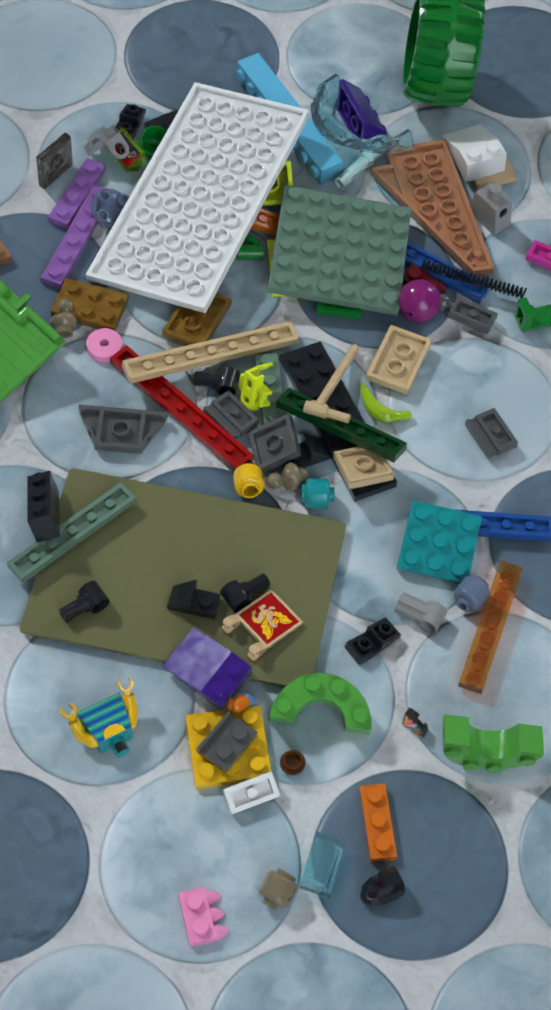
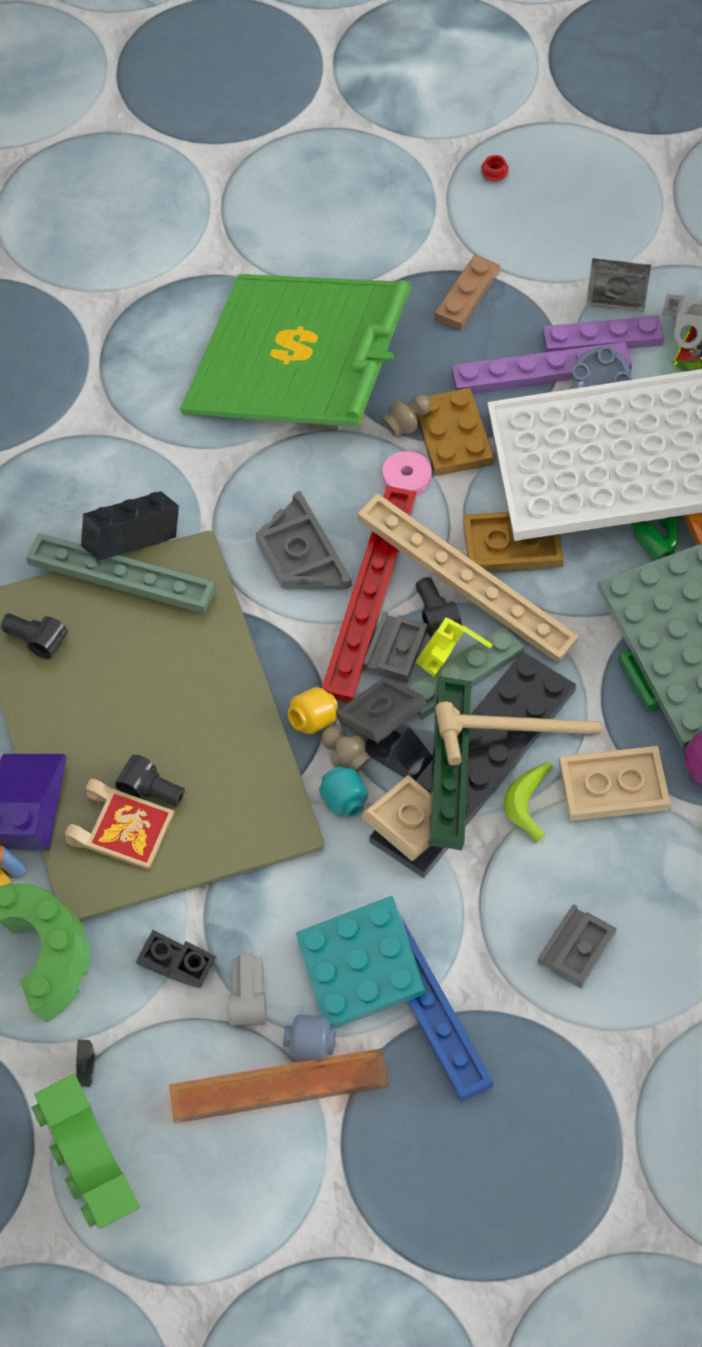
camera: 65 degrees right, 0 degrees up
(193, 601) = (107, 741): black slope -> none

